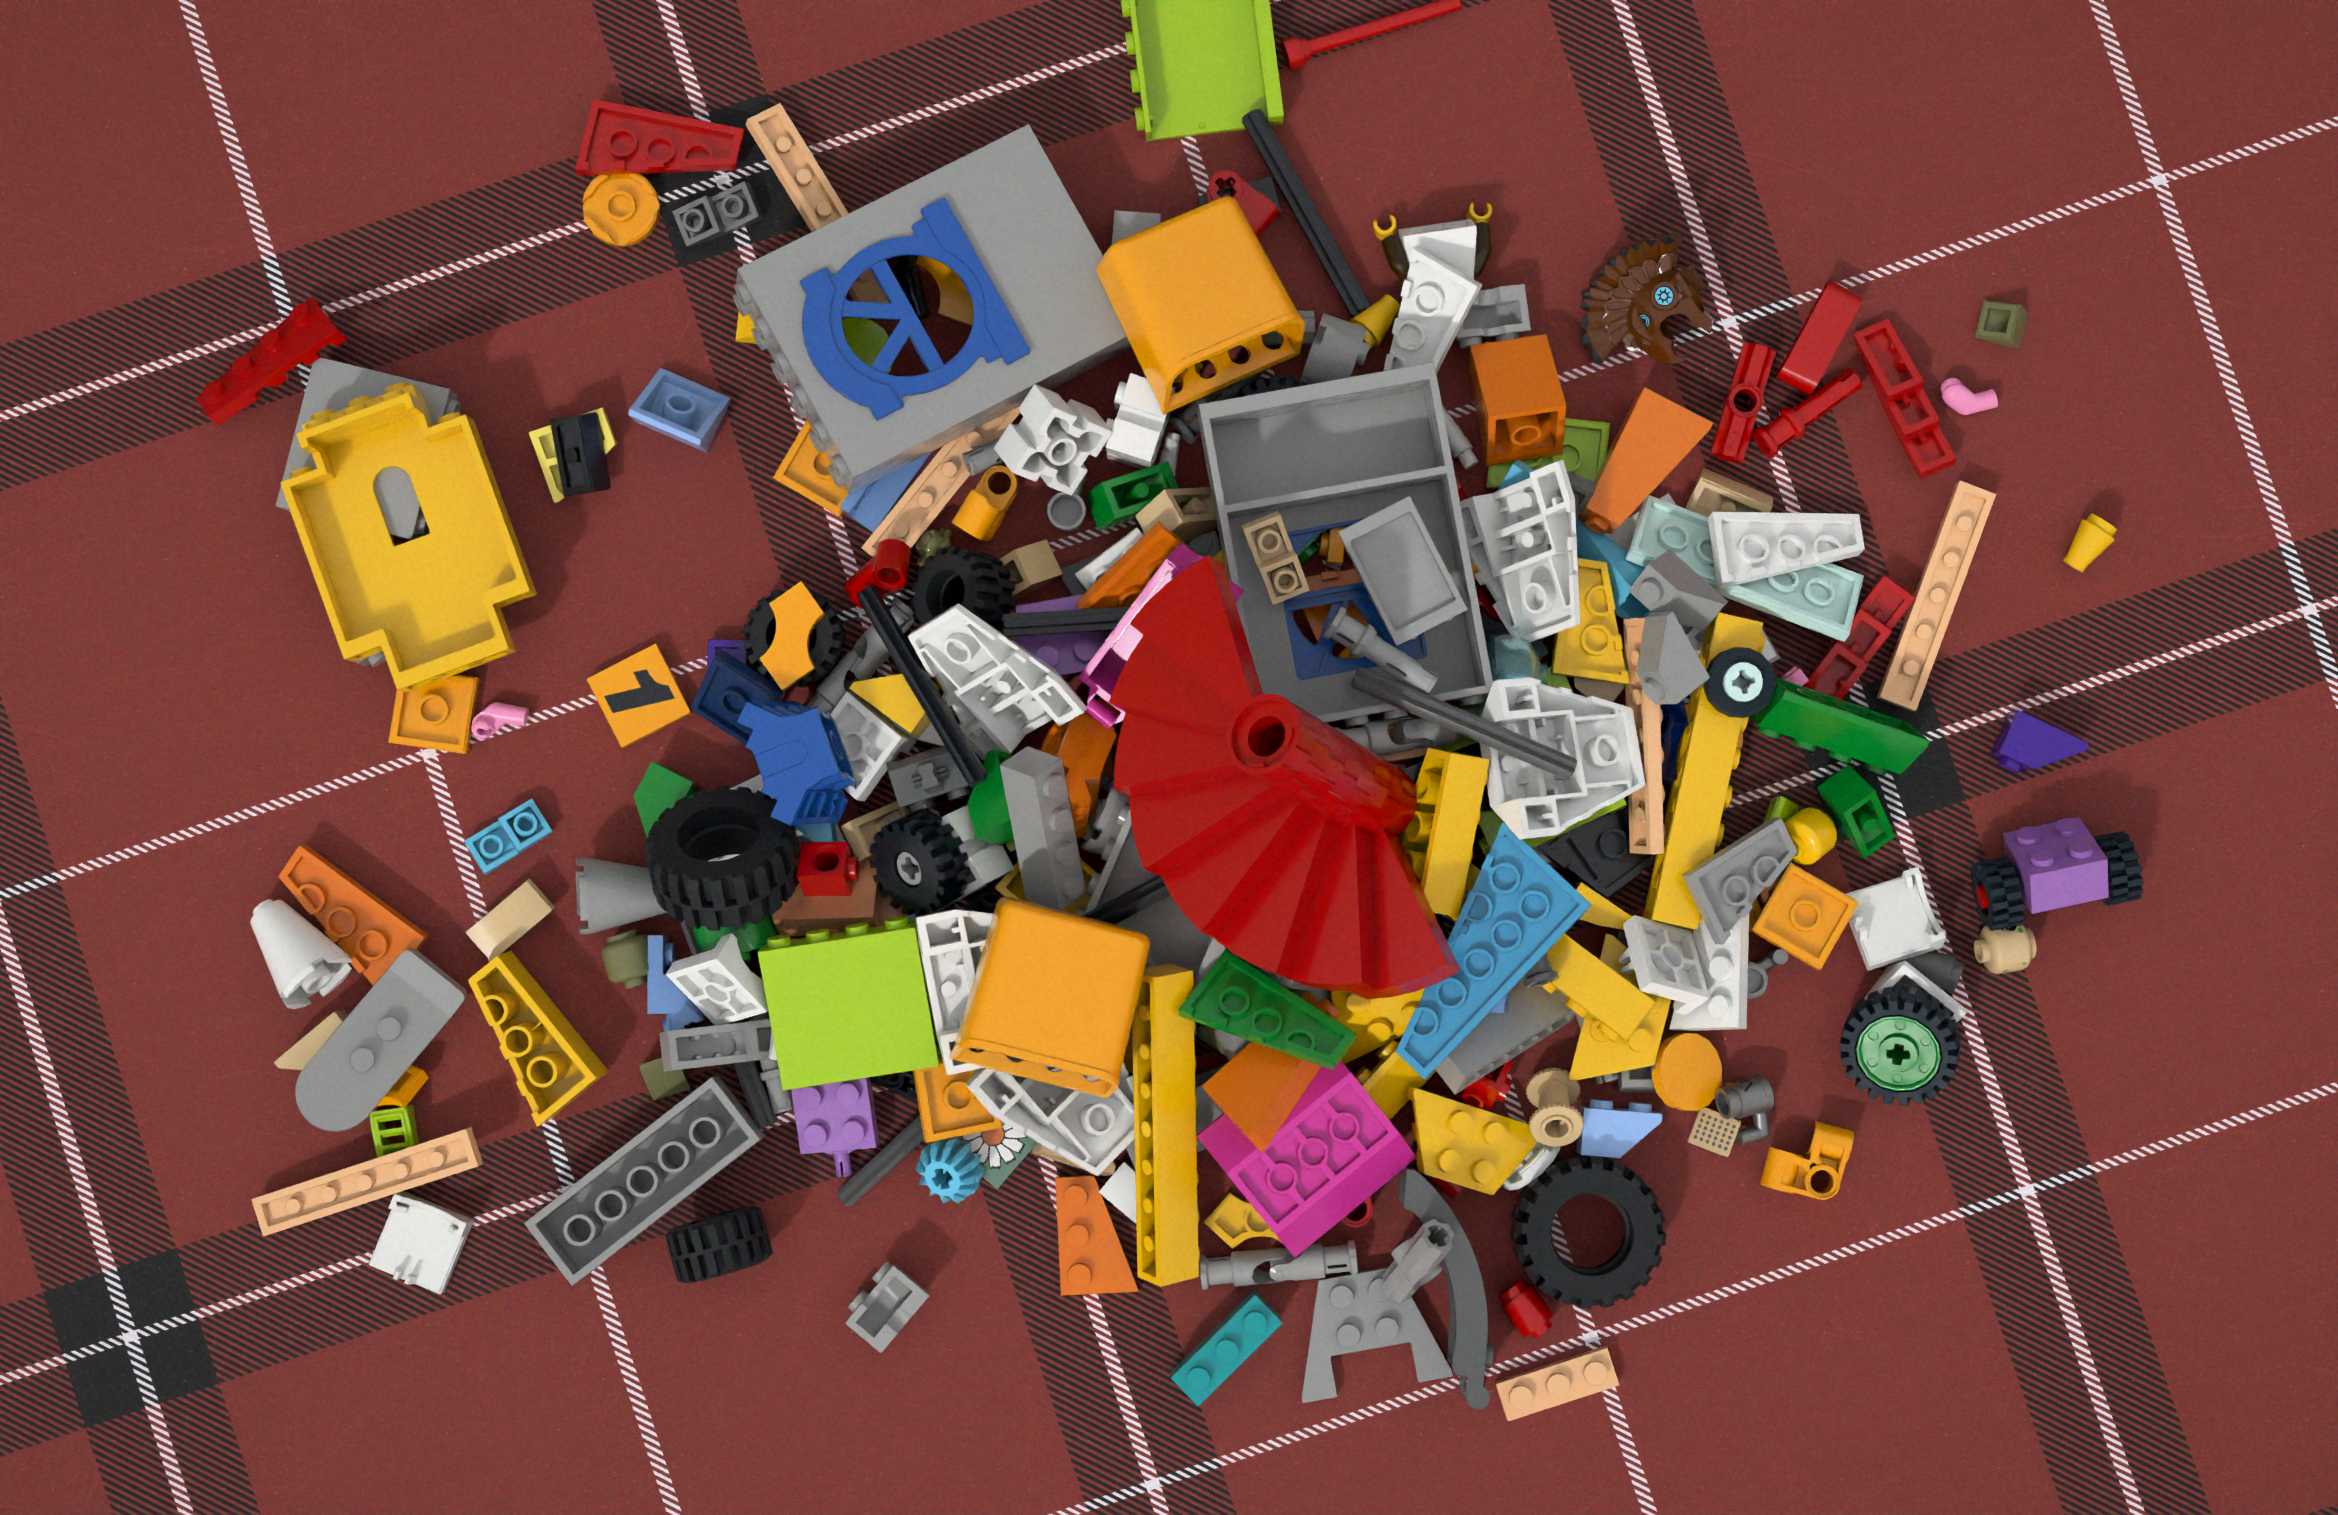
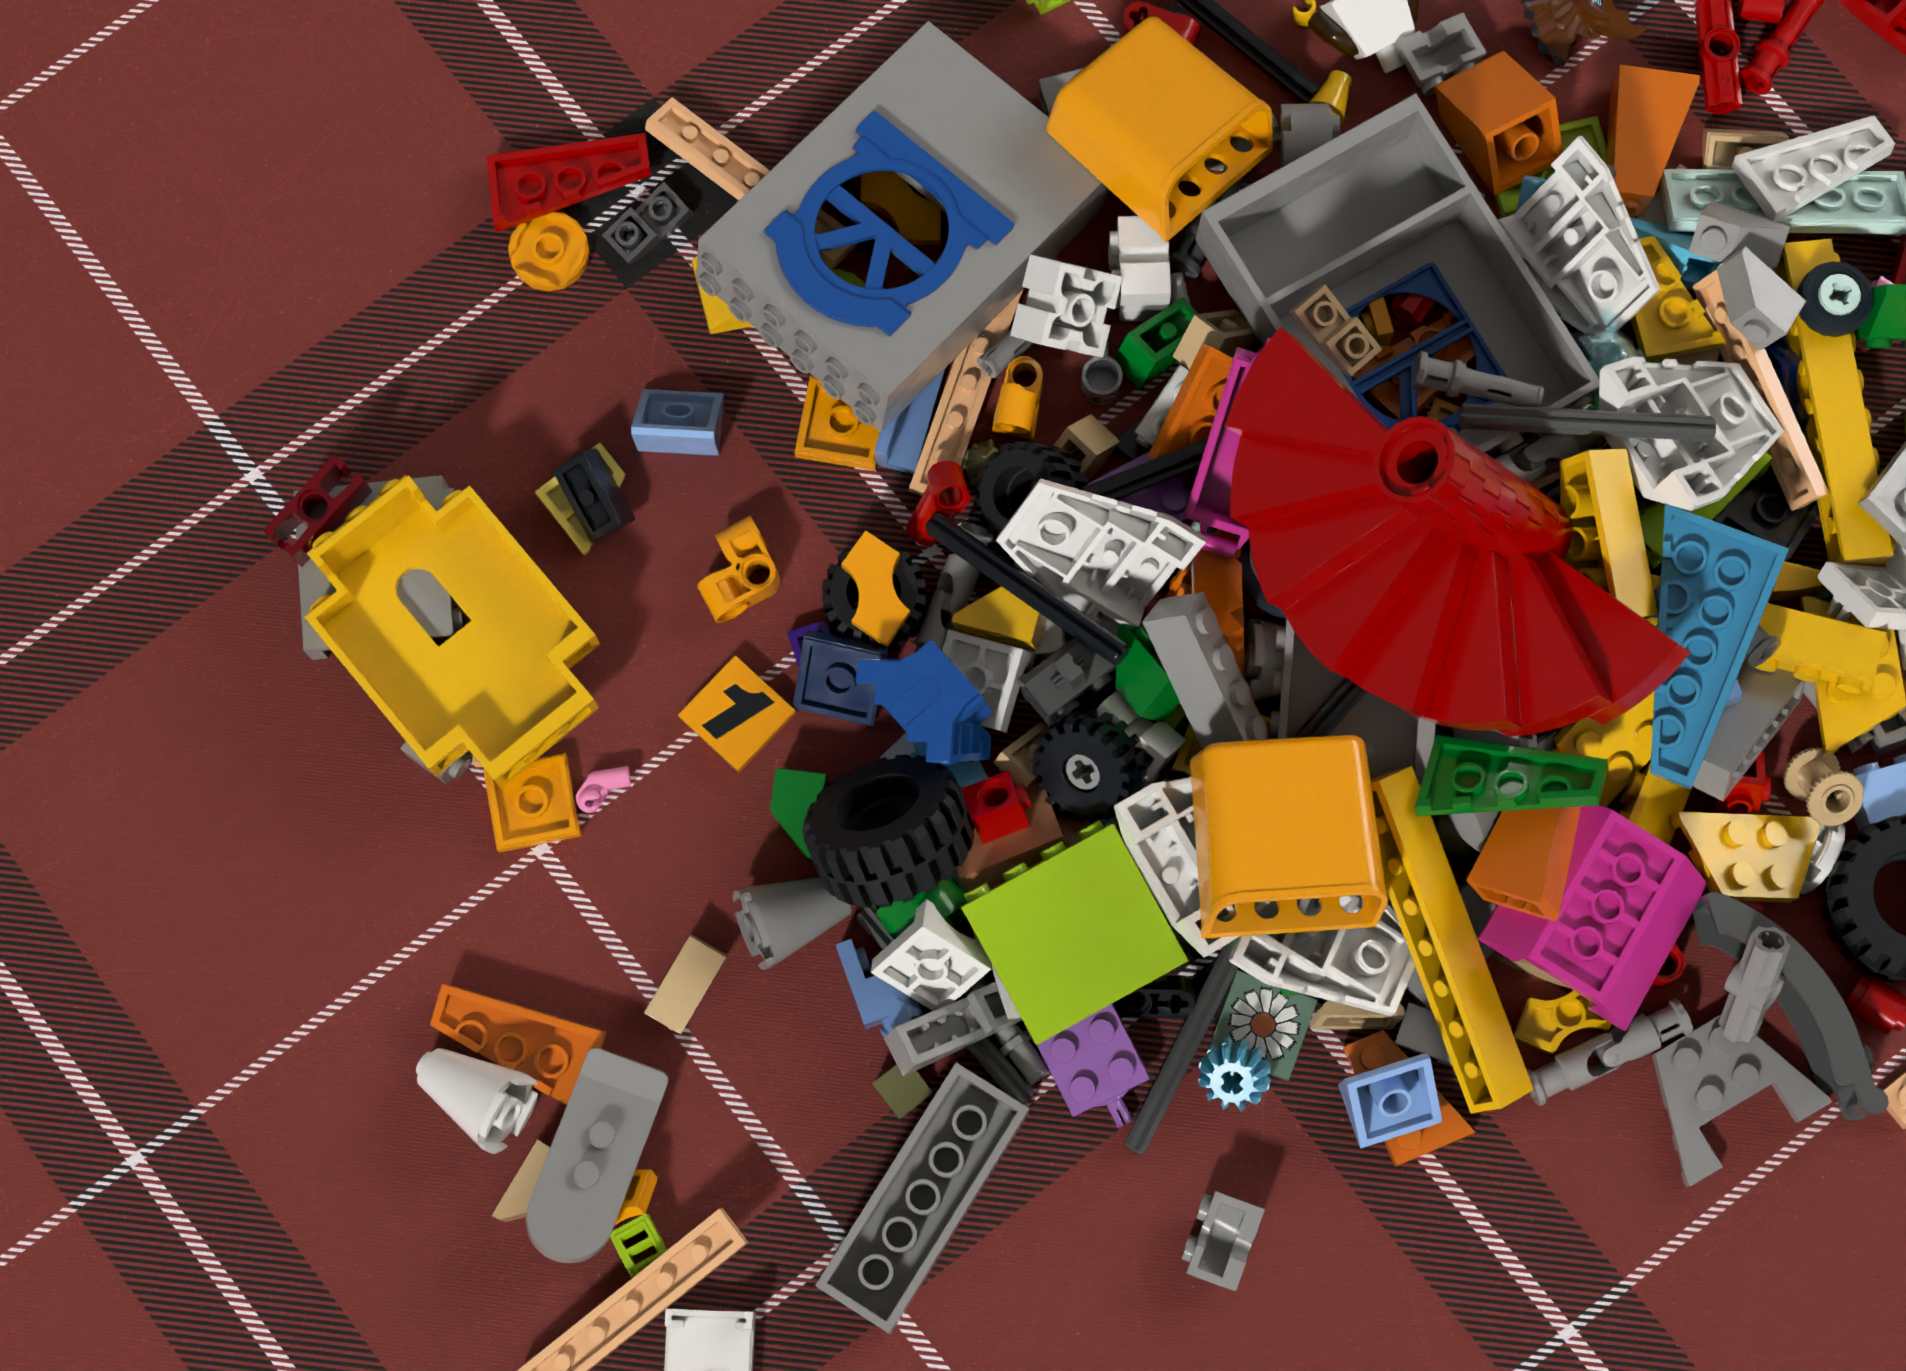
camera: 15 degrees left, 10 degrees down
(267, 364) = (253, 502): red wing -> none
(310, 380) = (313, 493): none -> dark red piece
(508, 837) = (653, 902): medium azure slope -> none
(535, 1037) = (765, 1100): yellow wedge -> none
(626, 958) = (821, 978): olive head -> none
(696, 551) = (729, 589): none -> light orange piece
(719, 1244) = (1026, 1234): black tyre -> none
(949, 1106) = (1213, 997): light orange tile -> none
(1073, 1242) = (1392, 1100): none -> light blue slope
(1226, 1347) = (1589, 1155): teal brick -> none
(1402, 571) = (1465, 300): light grey piece -> none
(1430, 311) = (1384, 57): white wing -> none

